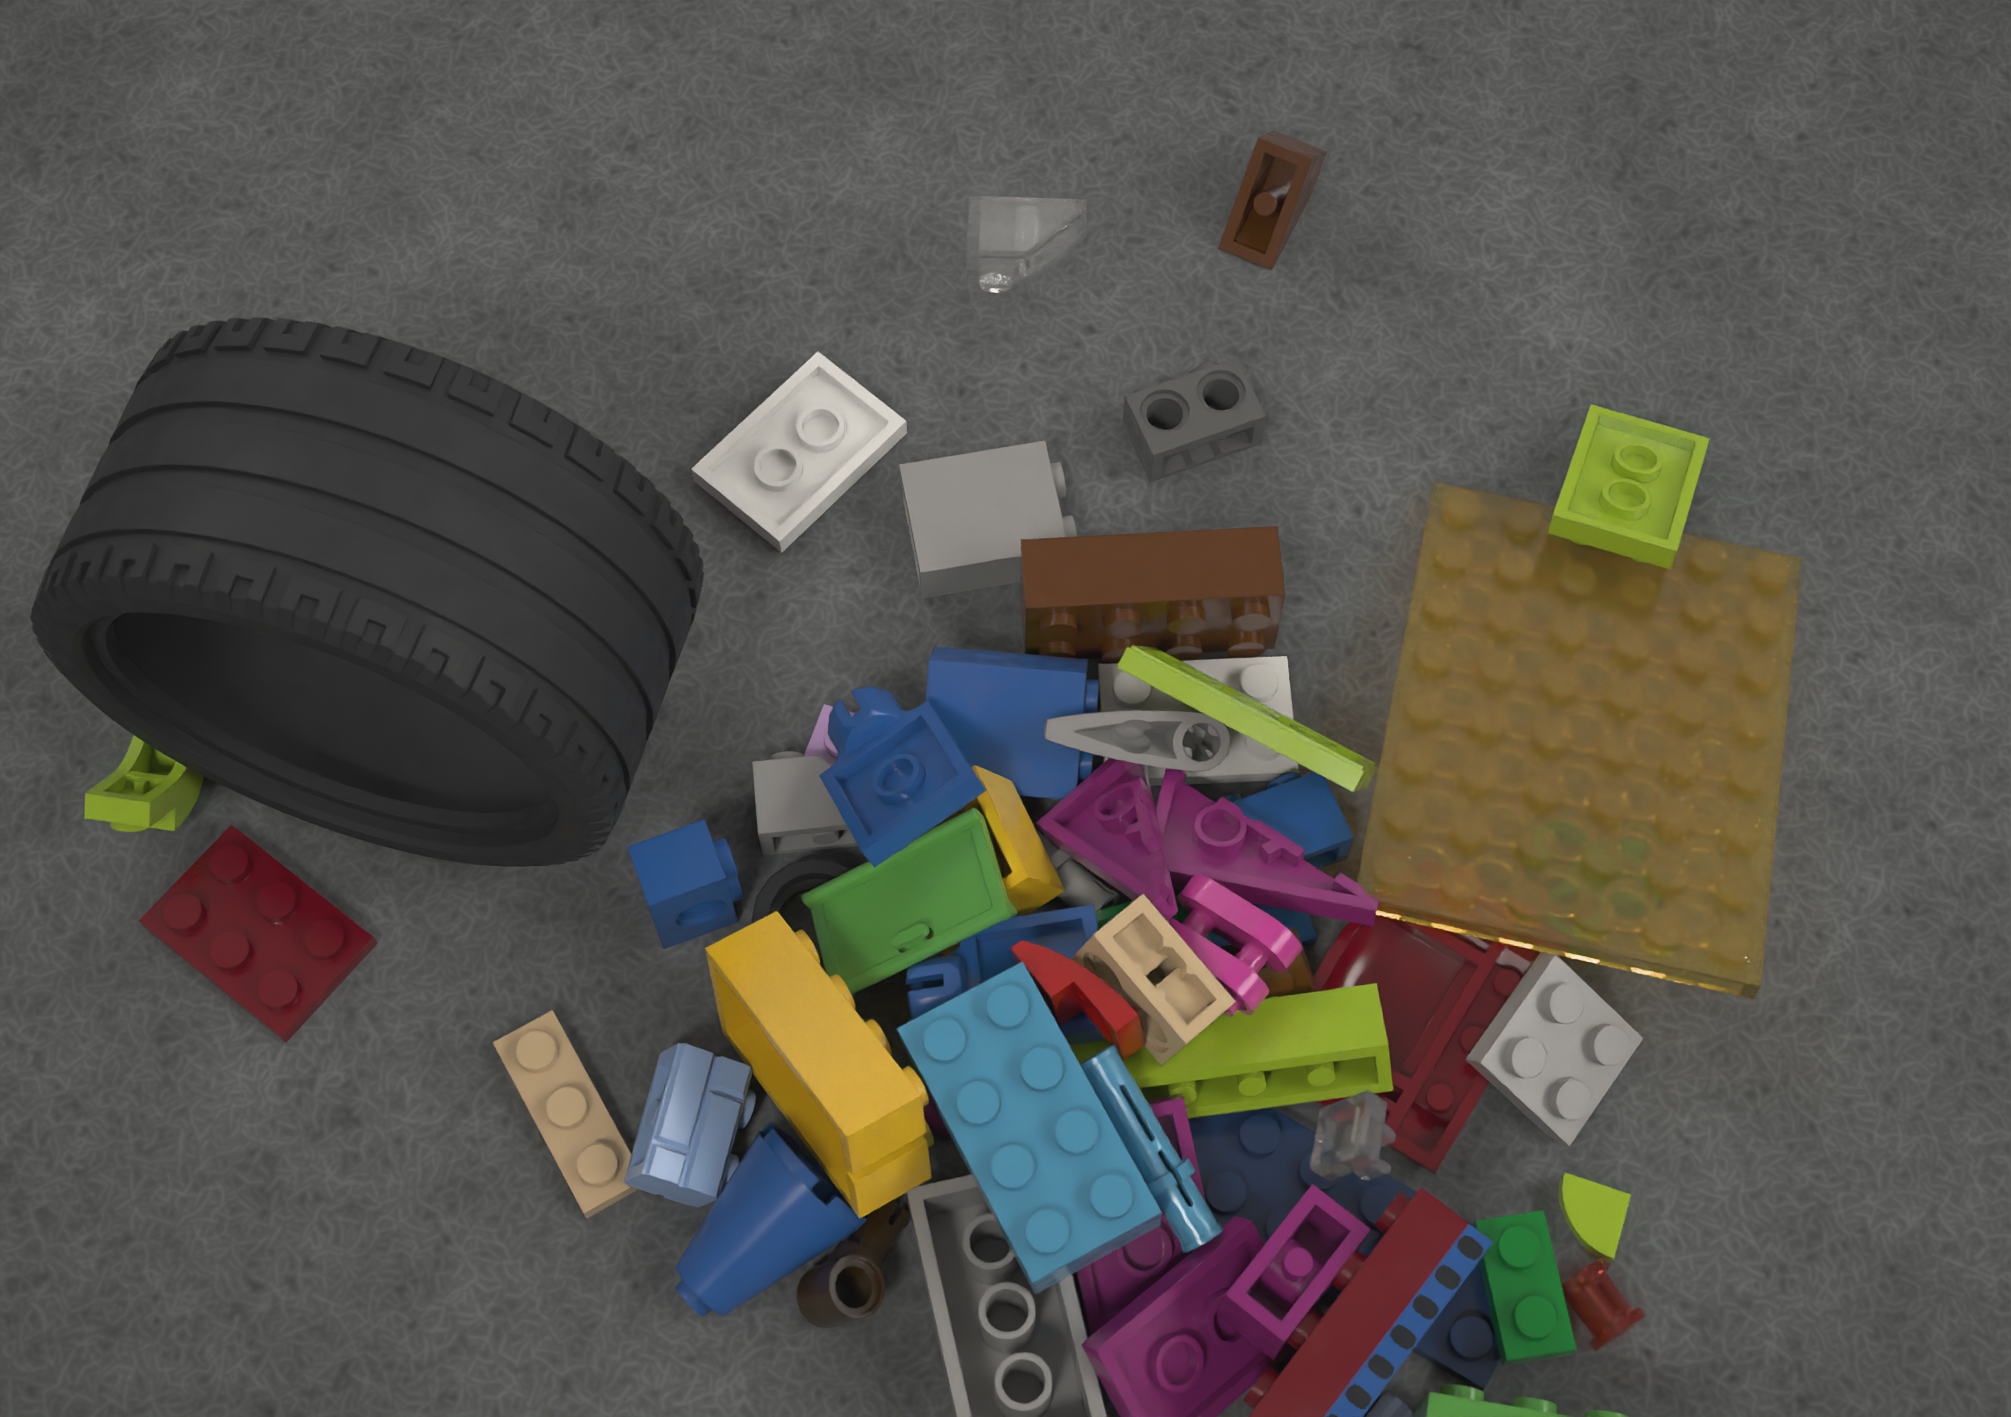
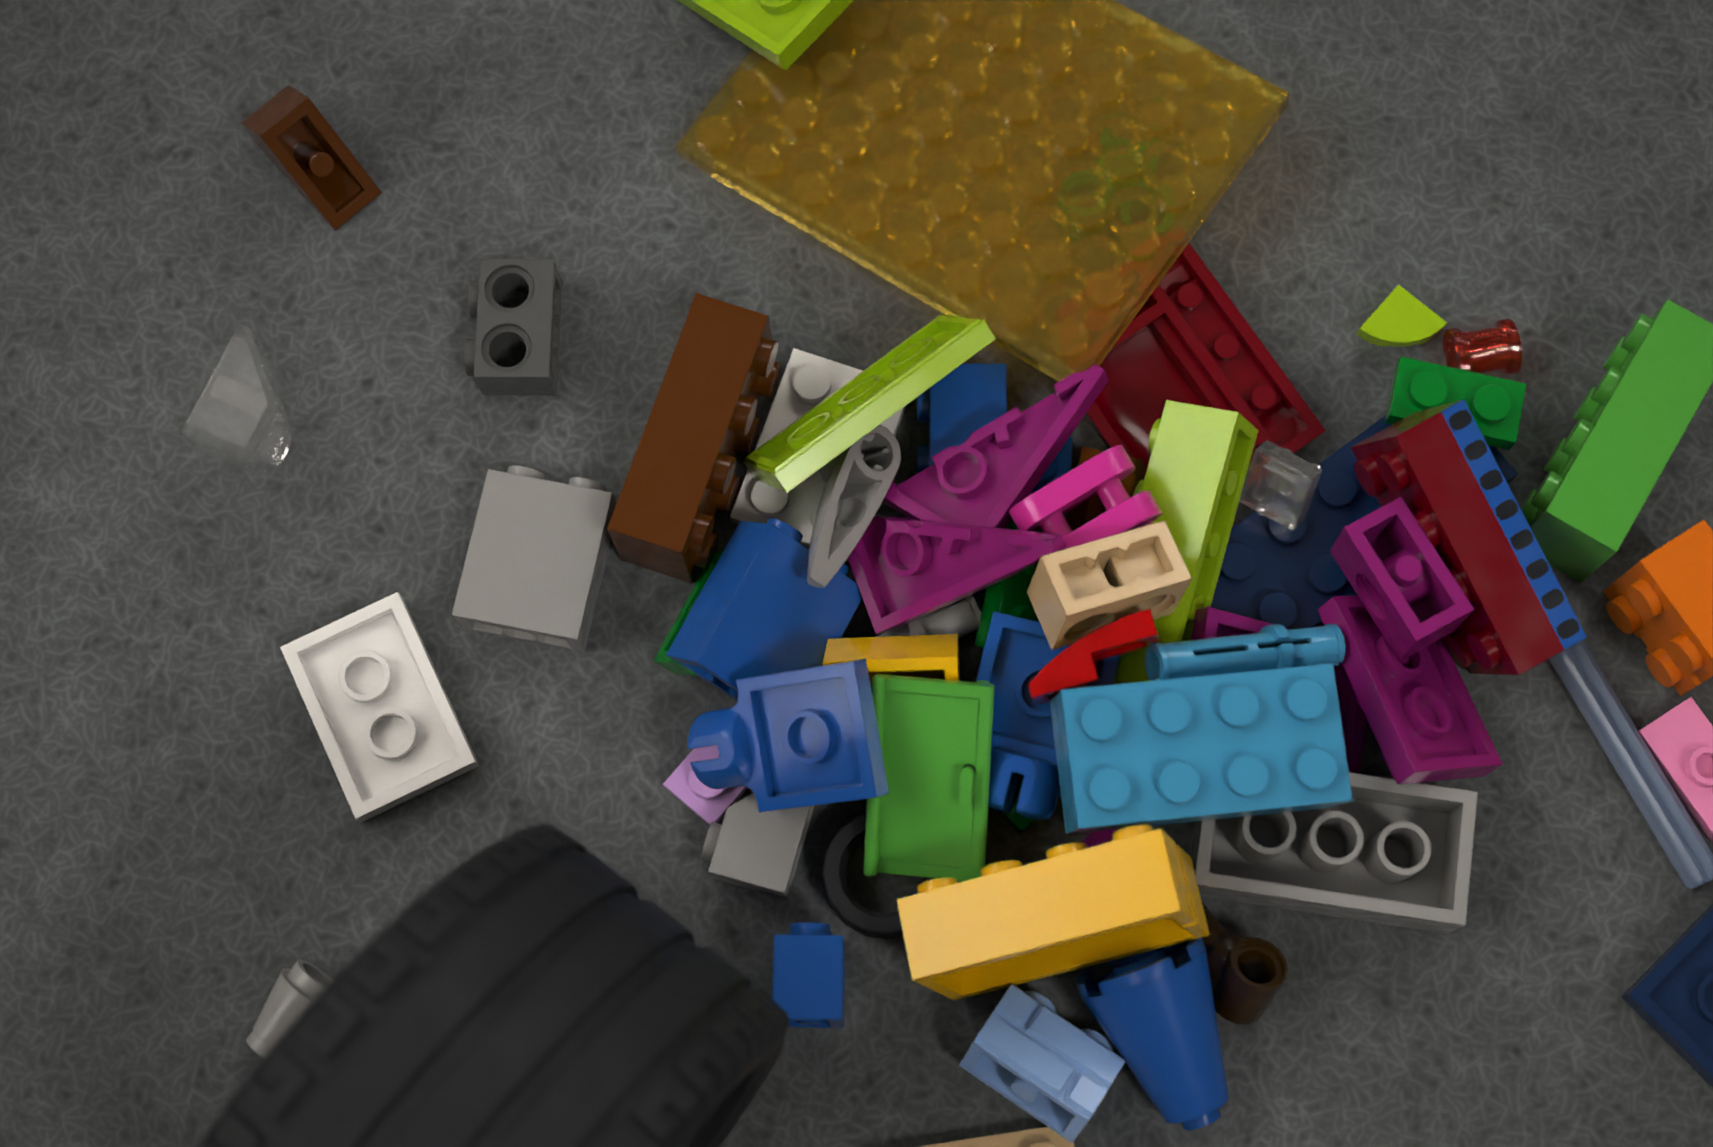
camera: 65 degrees left, 10 degrees up
(1554, 1048) = (1258, 284): light grey plate -> none

